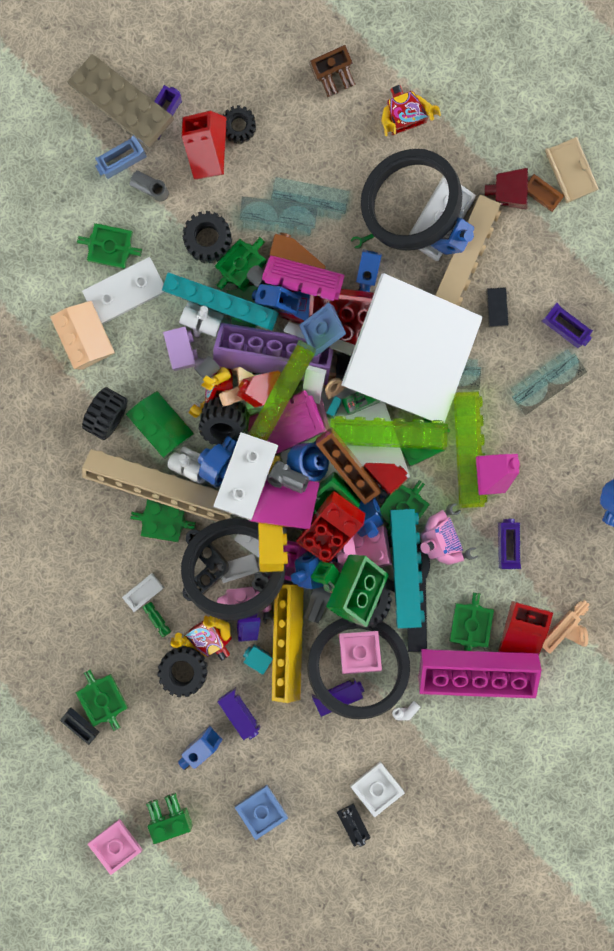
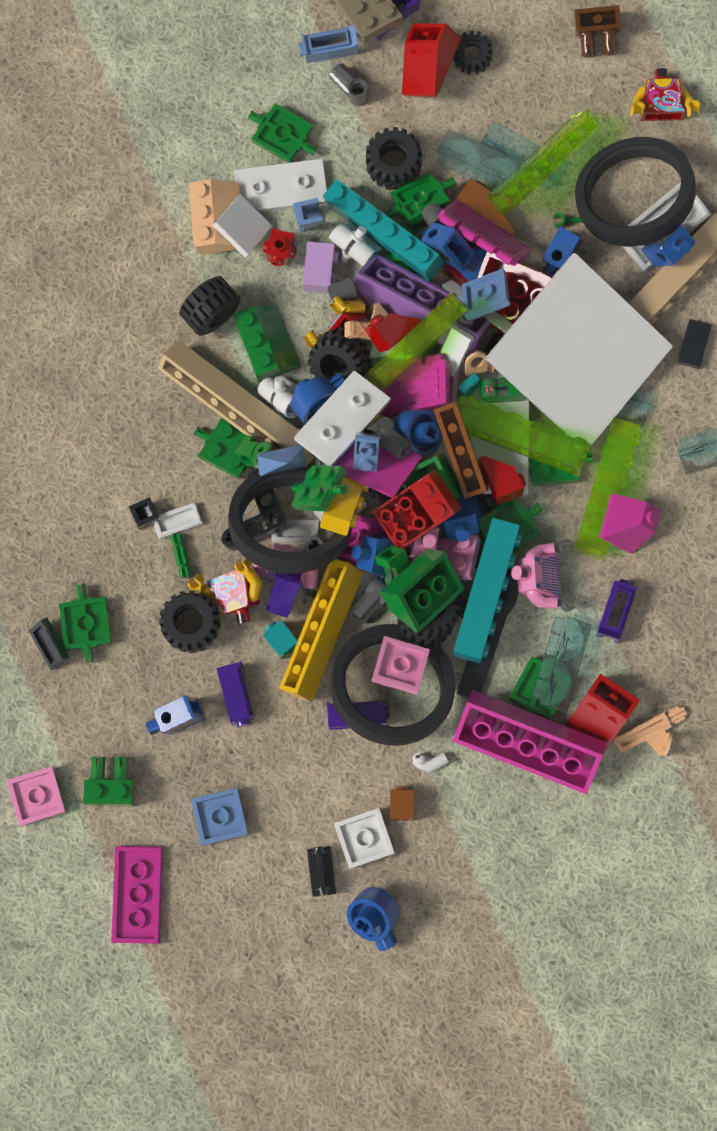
camera: 25 degrees right, 10 degrees down
(106, 336) = (242, 225): none -> white tile
(114, 597) = (144, 513): none -> black slope
(139, 338) = (280, 248): none -> red brick
(155, 311) = (308, 214): none -> medium blue window
(186, 521) = (248, 450): none -> green leg
(208, 523) = (281, 460): none -> medium blue slope
(220, 892) = (137, 894): none -> dark pink tile
(248, 541) = (319, 488): none -> green plate
(275, 497) = (366, 451): none -> medium blue slope
(329, 199) = (544, 161): none -> clear neon green brick
(397, 753) = (402, 804): none -> dark orange brick
(407, 849) = (374, 916): none -> blue piece
(484, 597) = (565, 663): none -> clear light blue windscreen

